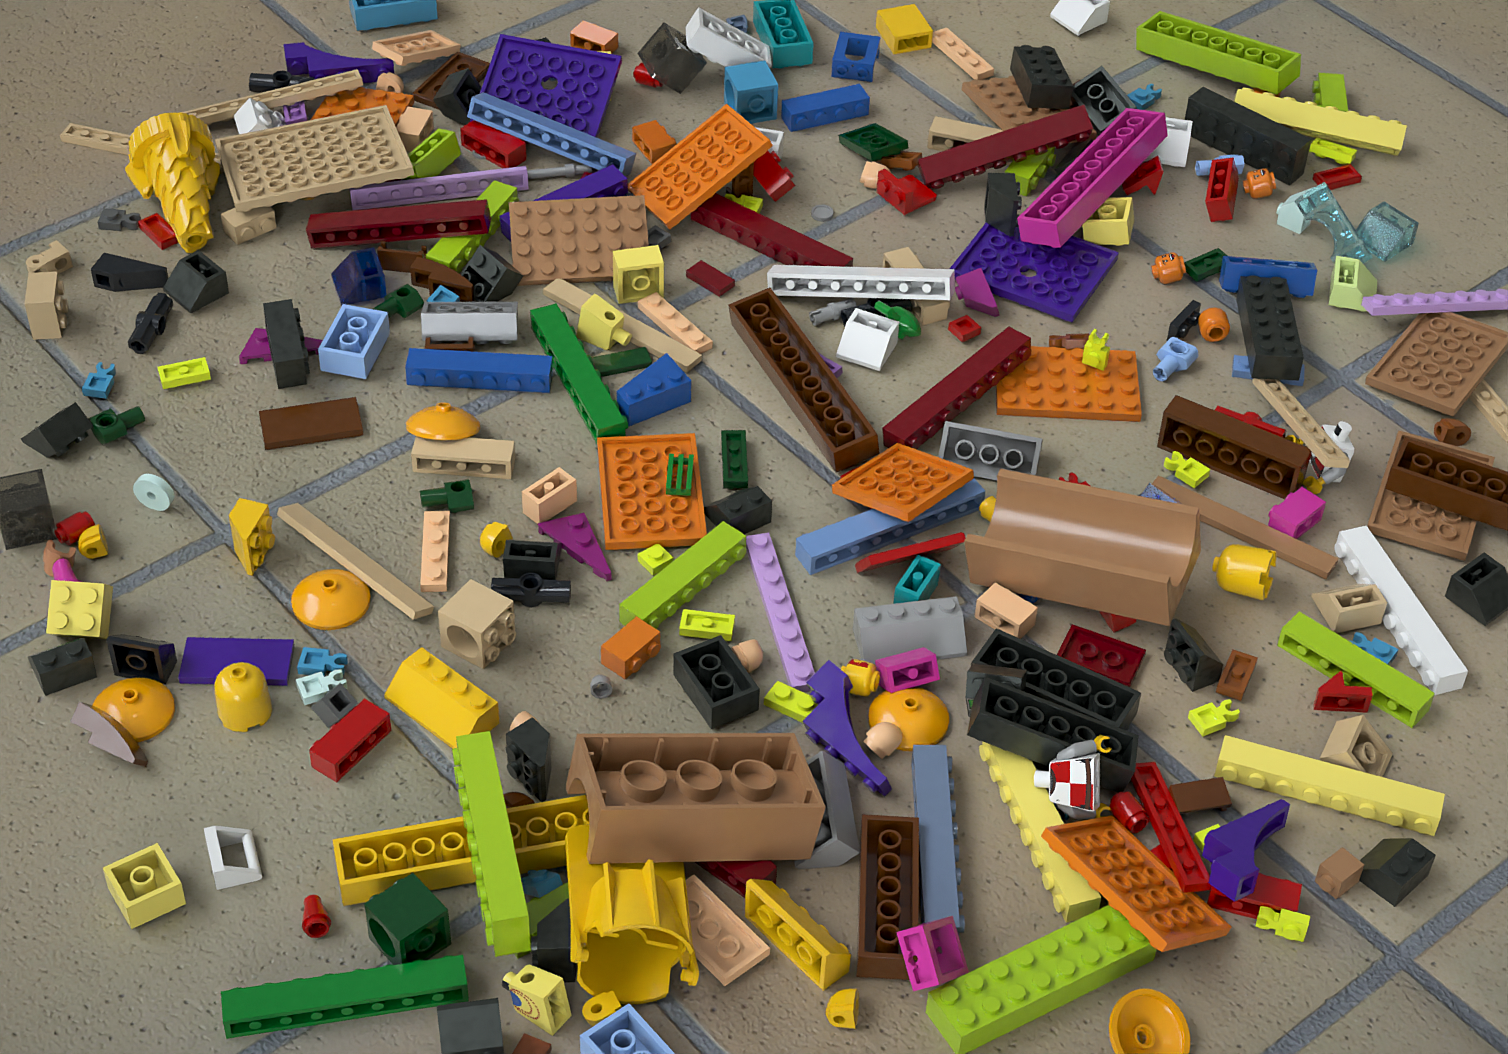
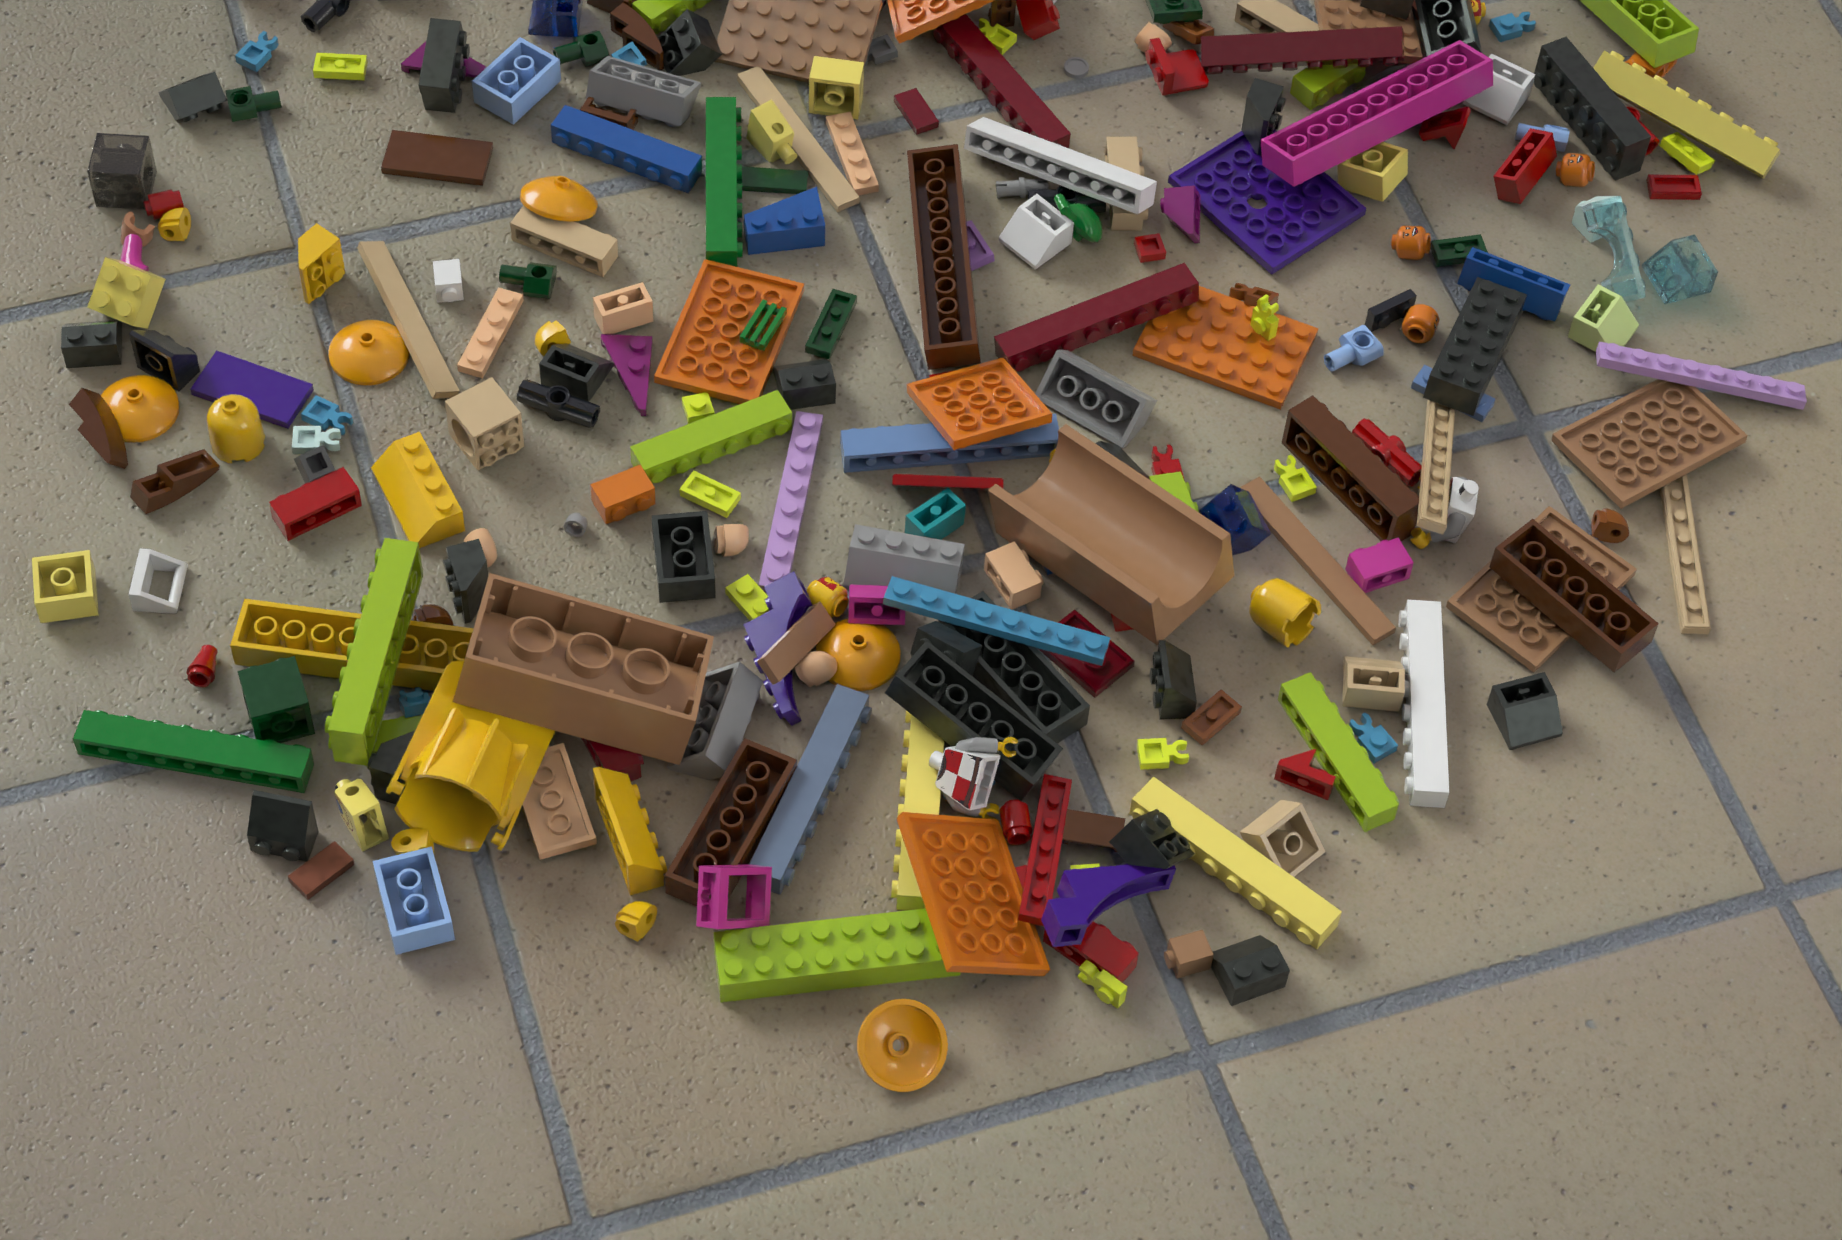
camera: 20 degrees right, 10 degrees up
(153, 492) = (250, 189): light aqua piece -> none
(201, 761) = (173, 480): none -> reddish brown slope
(376, 518) = (448, 280): none -> white brick
(860, 721) = (796, 643): none -> medium nougat tile
(1023, 647) = (996, 620): none -> dark azure plate
(1259, 789) = (1151, 842): none -> pearl dark grey slope
(1330, 91) = (1725, 84): lime brick -> none

